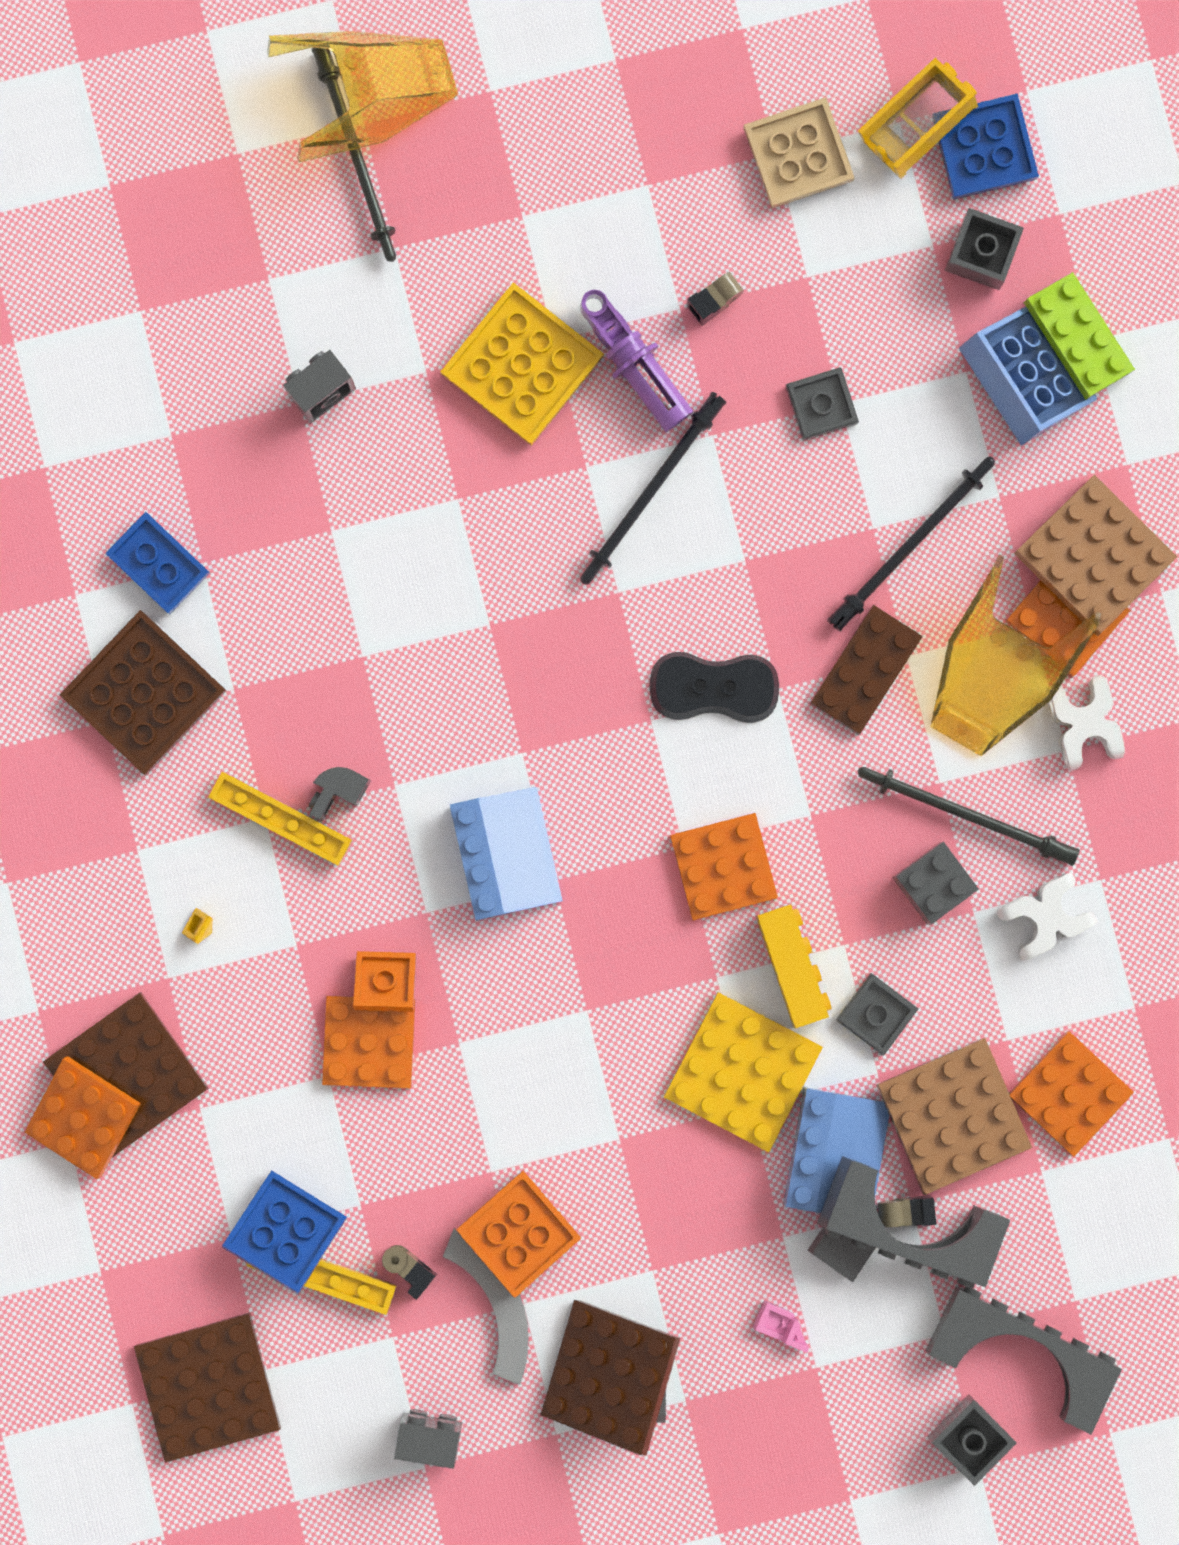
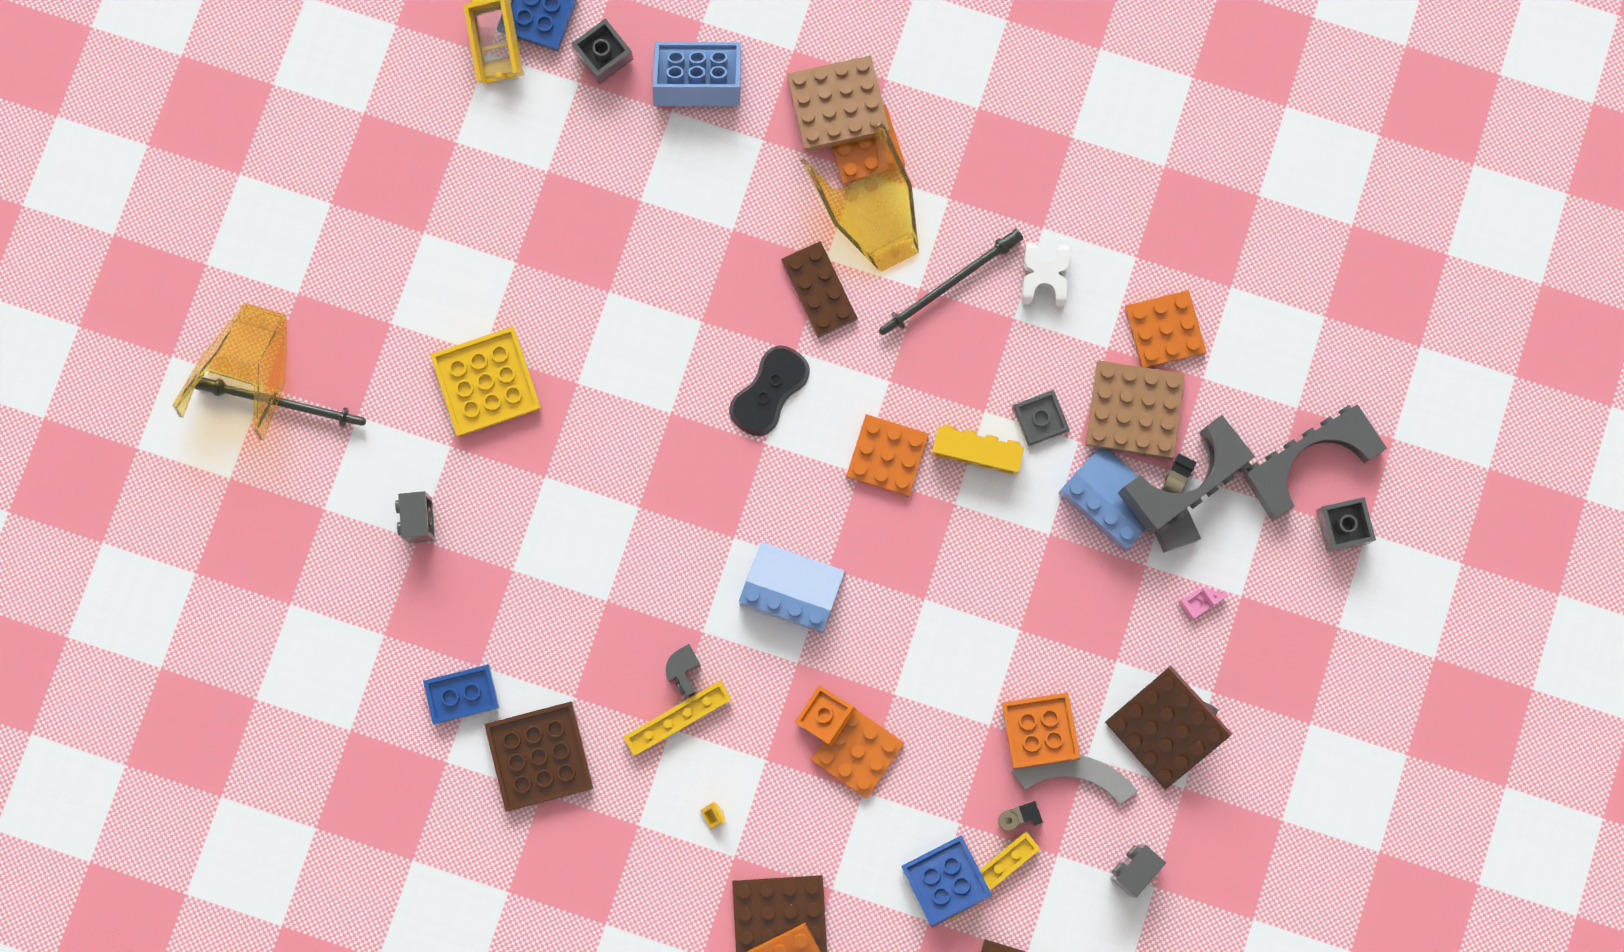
camera: 55 degrees left, 5 degrees down
(629, 350) = (521, 309): medium lavender piece -> none
(700, 422) = (596, 292): black bar -> none
(714, 298) = (523, 236): leg -> none
(743, 1072) = (1025, 524): yellow plate -> none
(798, 152) = (466, 126): tan plate -> none
(822, 403) = (633, 211): dark grey tile -> none
(855, 602) = (772, 269): black bar -> none
(935, 883) = (981, 329): dark grey brick -> none
(1079, 335) = (694, 28): lime plate -> none
(1086, 723) = (939, 174): white piece -> none

